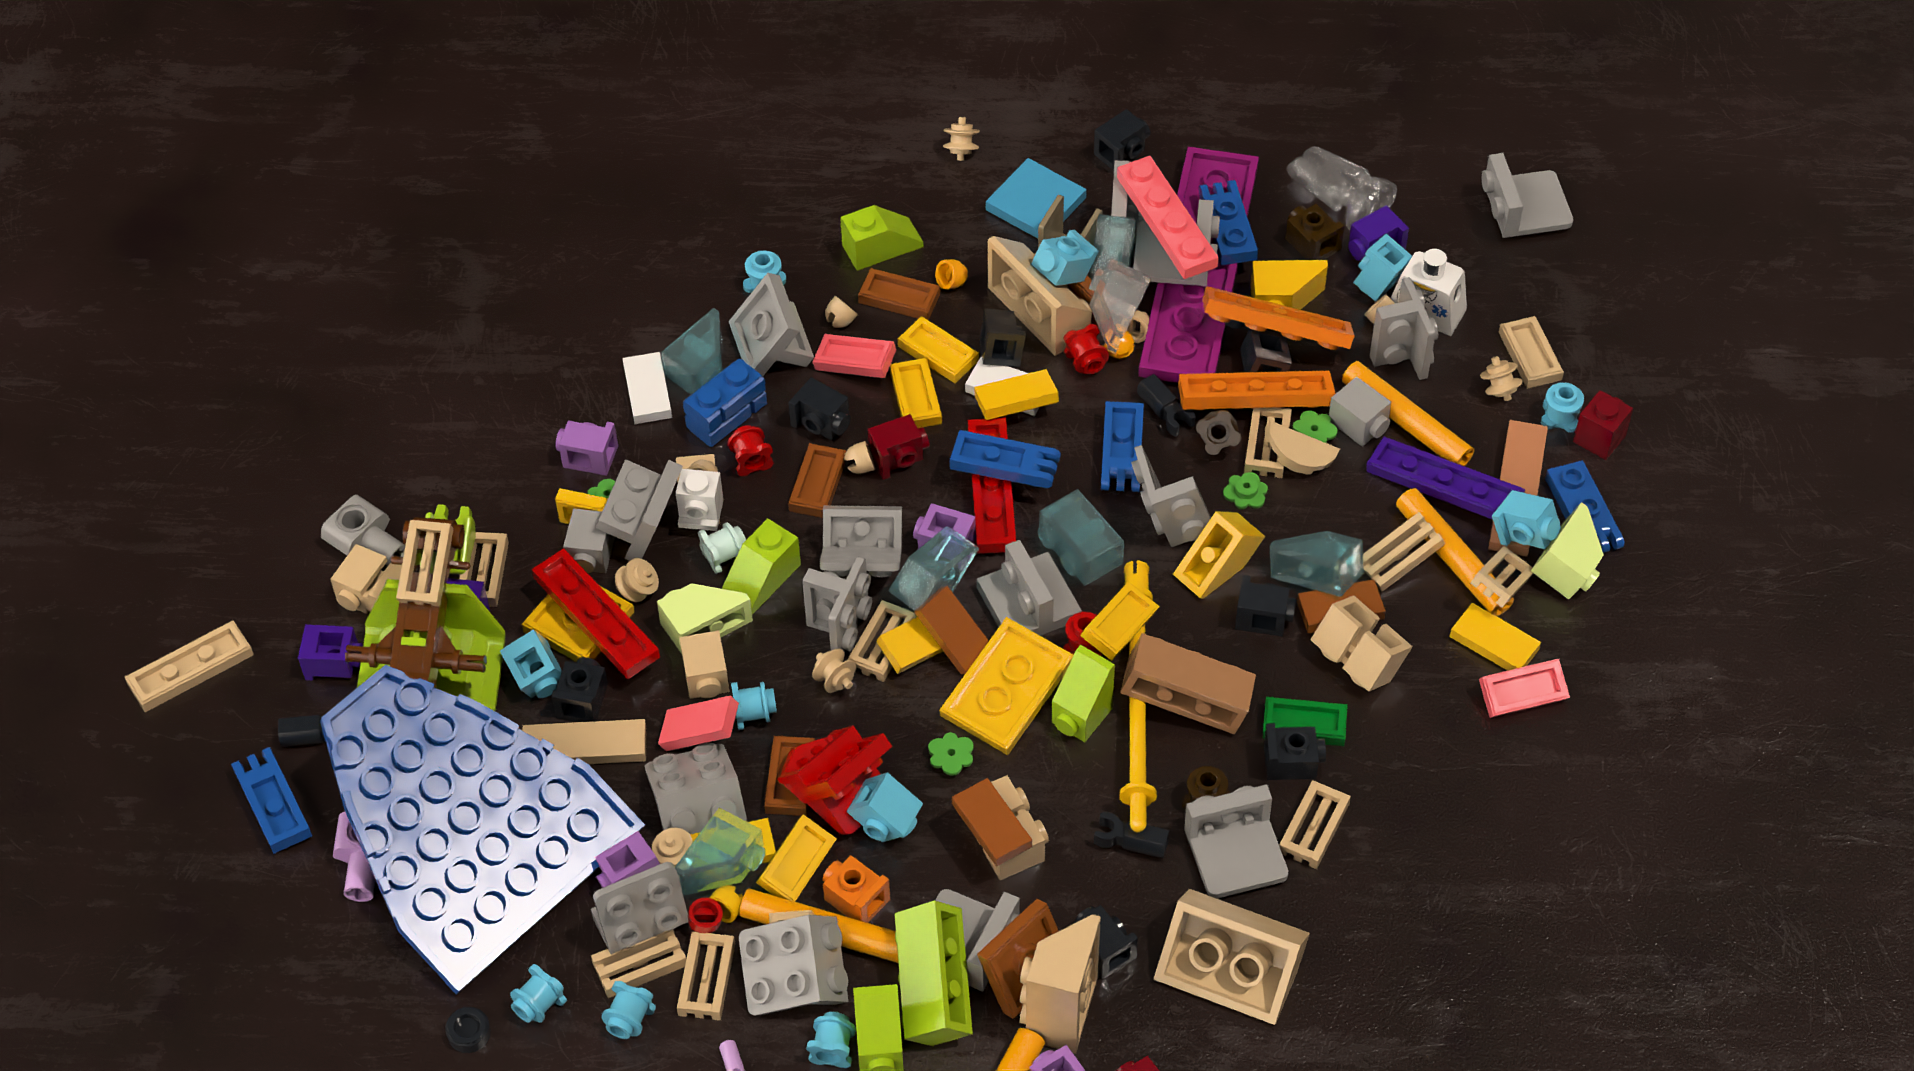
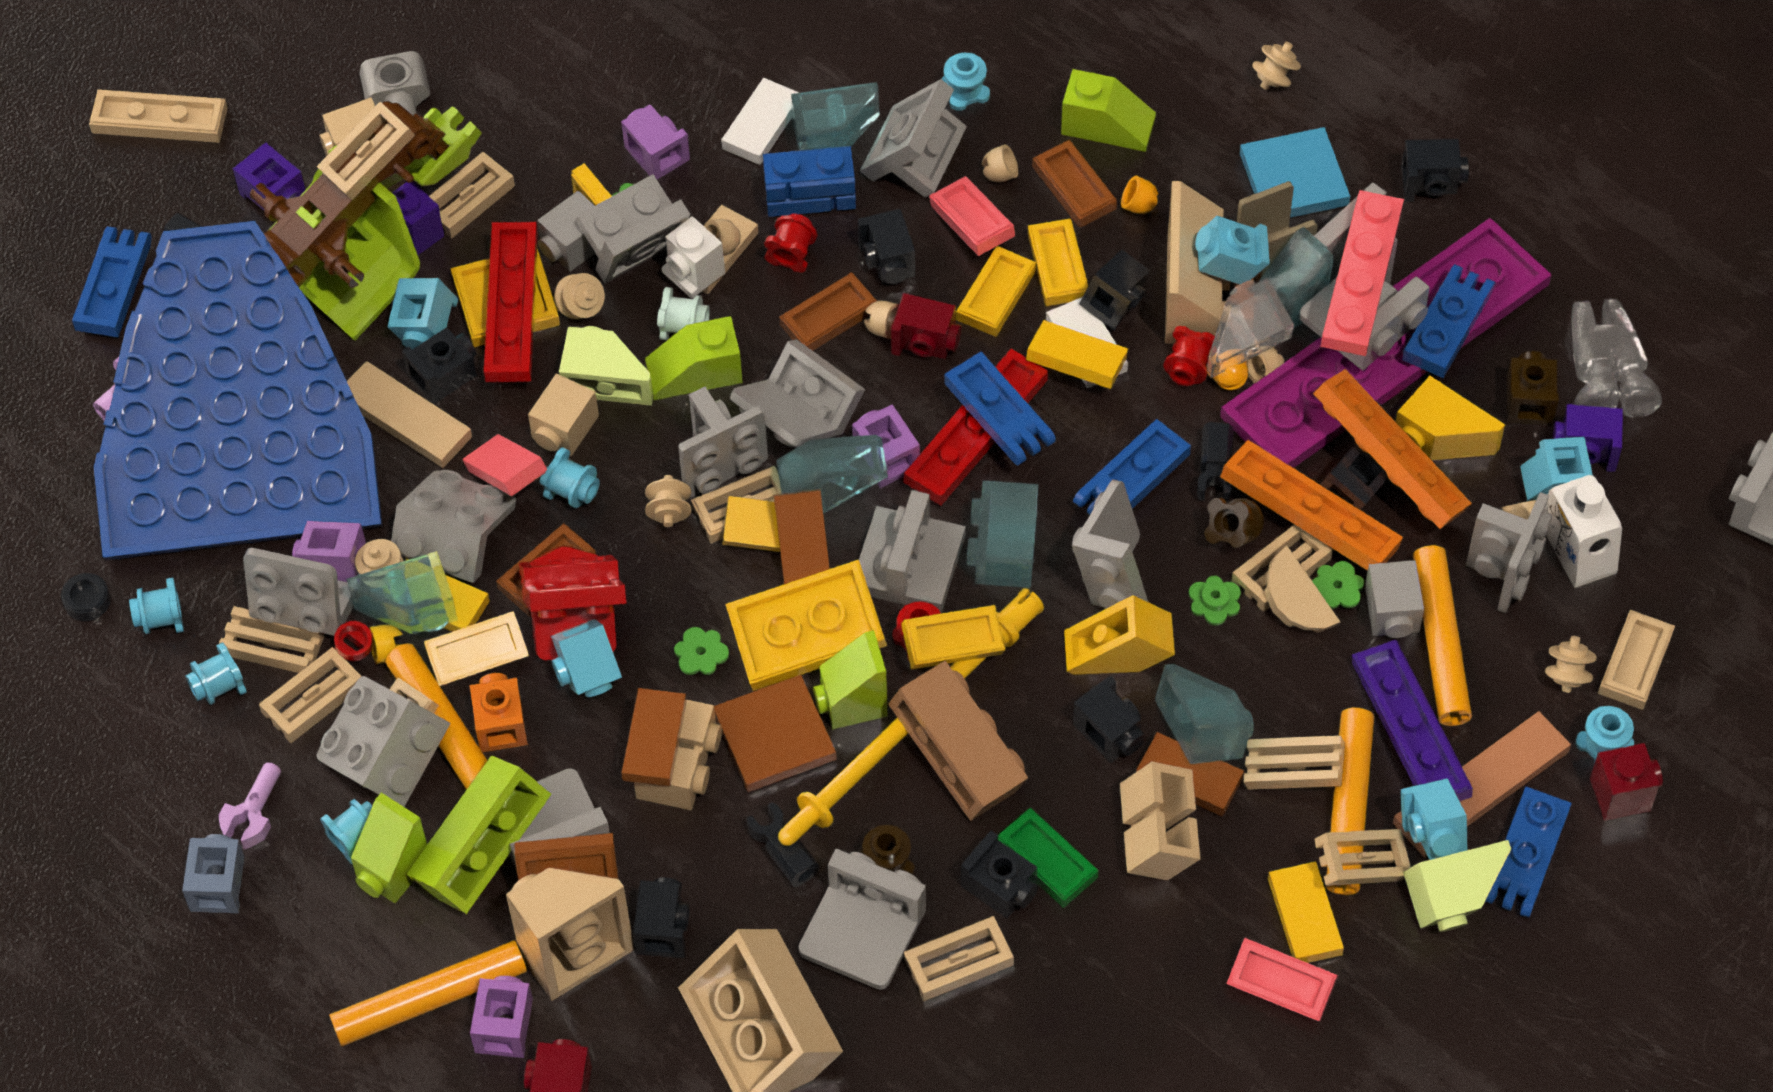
camera: 40 degrees right, 5 degrees up
(1055, 769) = (774, 733): none -> dark orange tile

